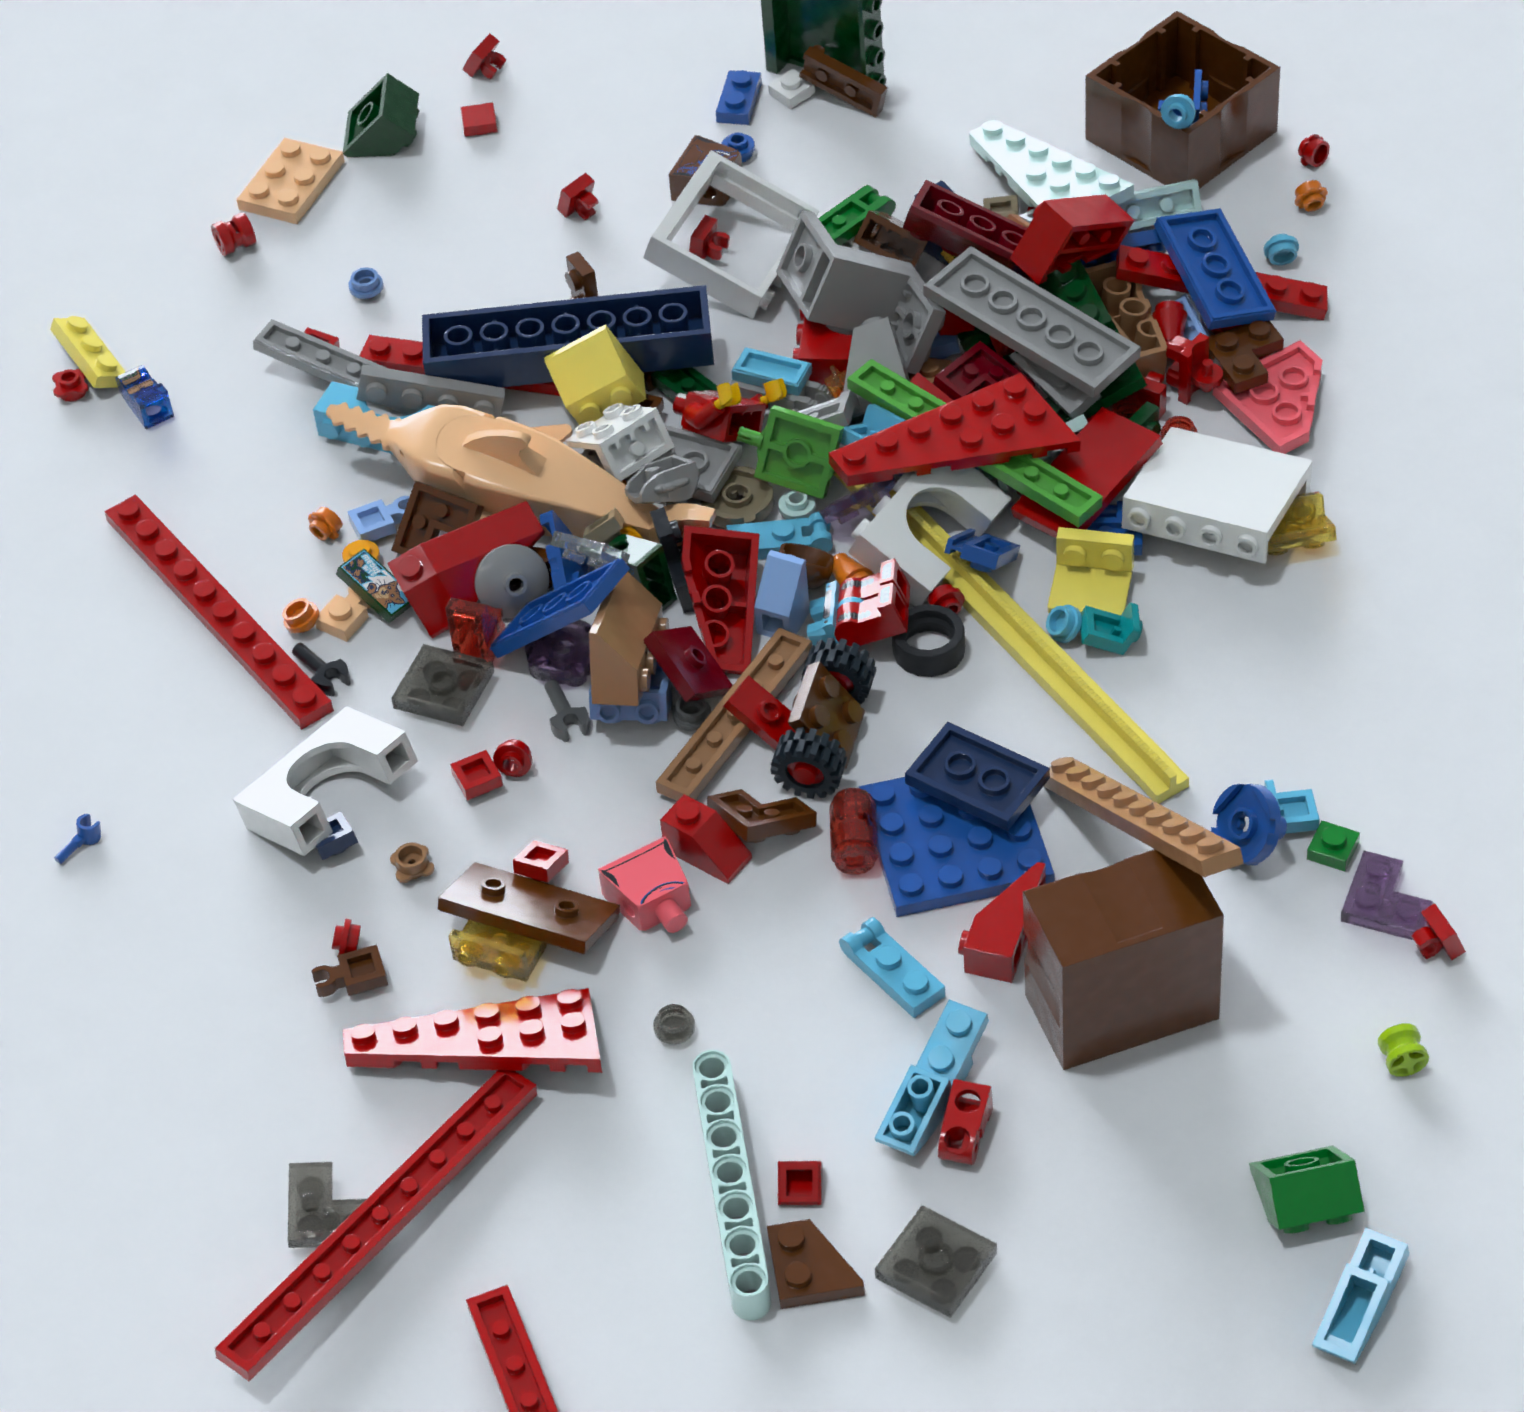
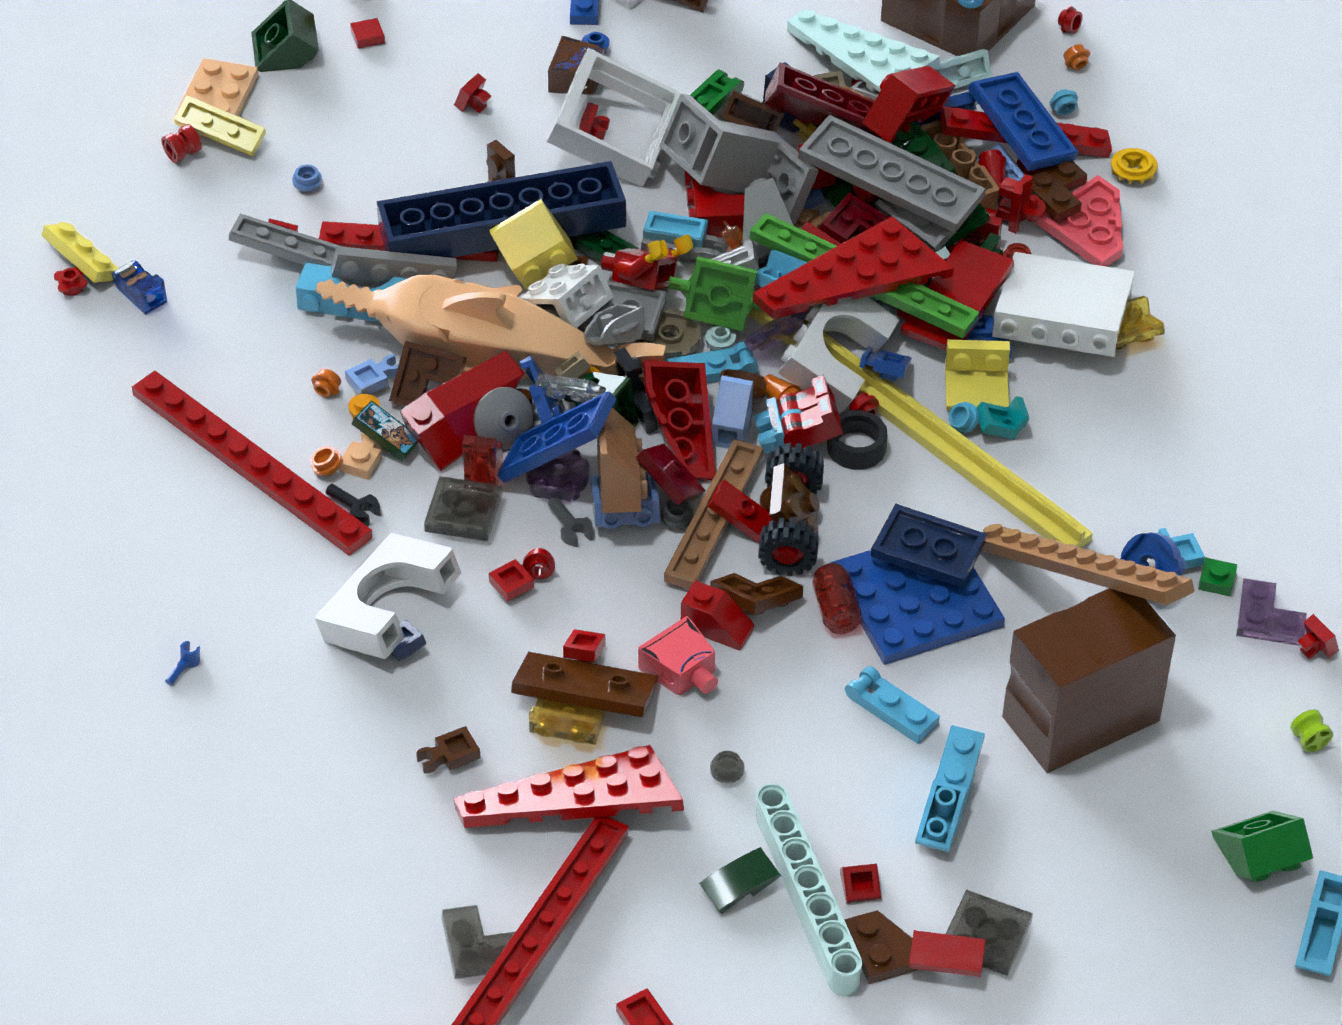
camera: 15 degrees left, 0 degrees up
(281, 216) = (220, 125): none -> light yellow plate
(346, 937) = (437, 723): red plate -> none
(411, 862) = (474, 656): medium nougat plate -> none
(652, 1161) = (739, 878): none -> dark green slope
(877, 1282) = (947, 953): none -> red tile
(964, 1122) = (983, 821): red leg -> none
(997, 932) = (974, 666): red slope -> none
(1350, 322) = (1130, 158): none -> yellow gear

